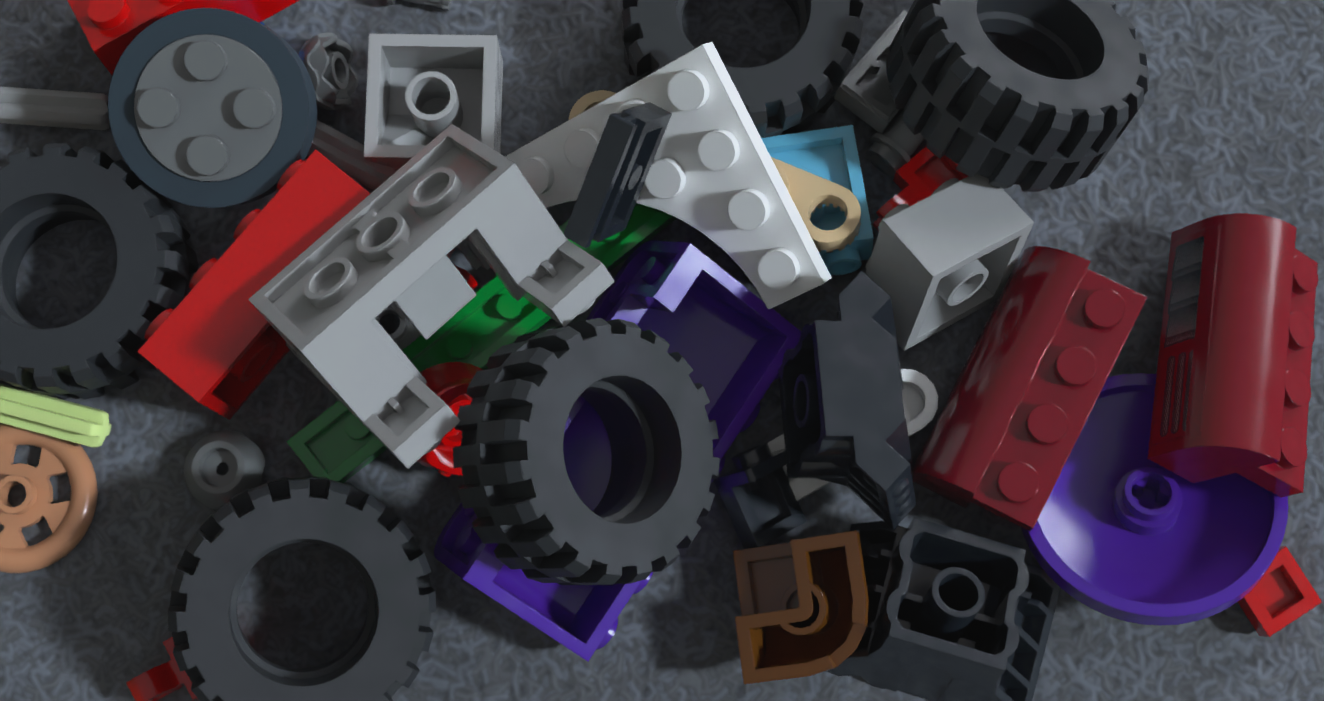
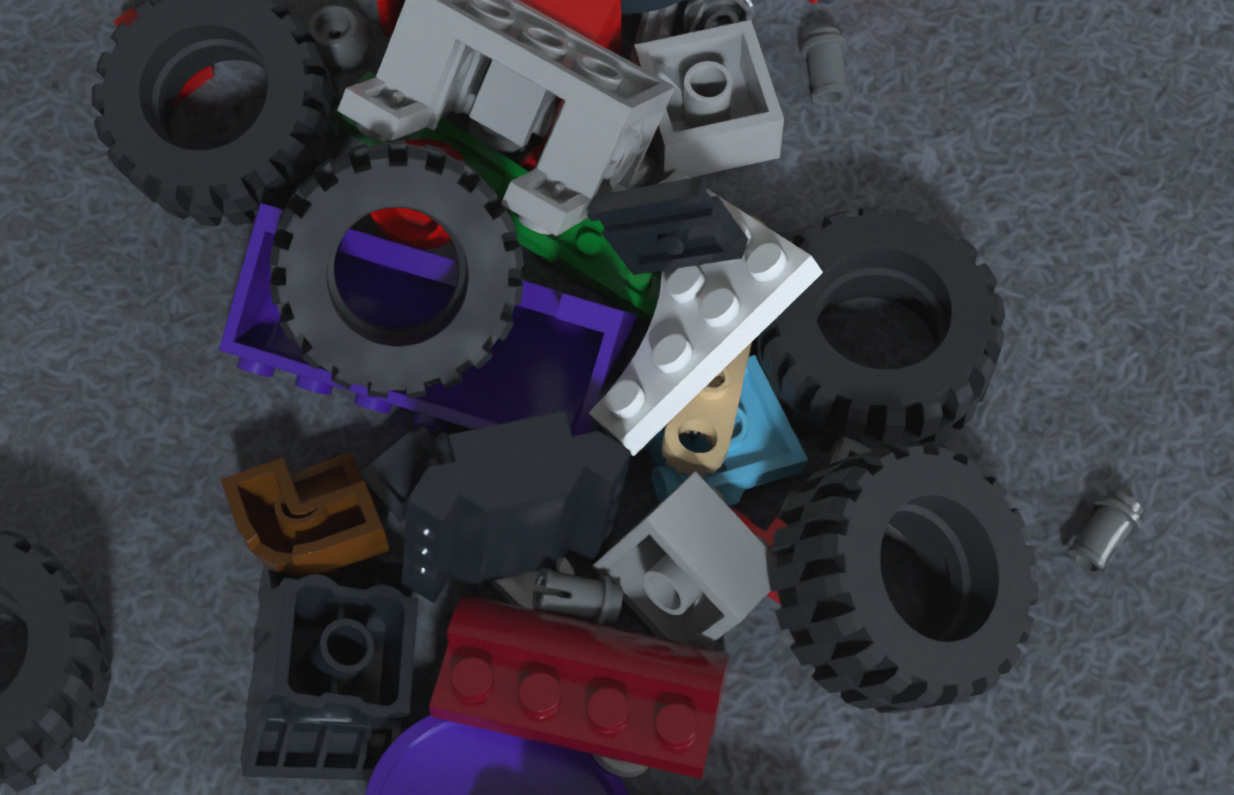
camera: 80 degrees right, 15 degrees down
(941, 357) = (580, 596): none -> dark grey pin

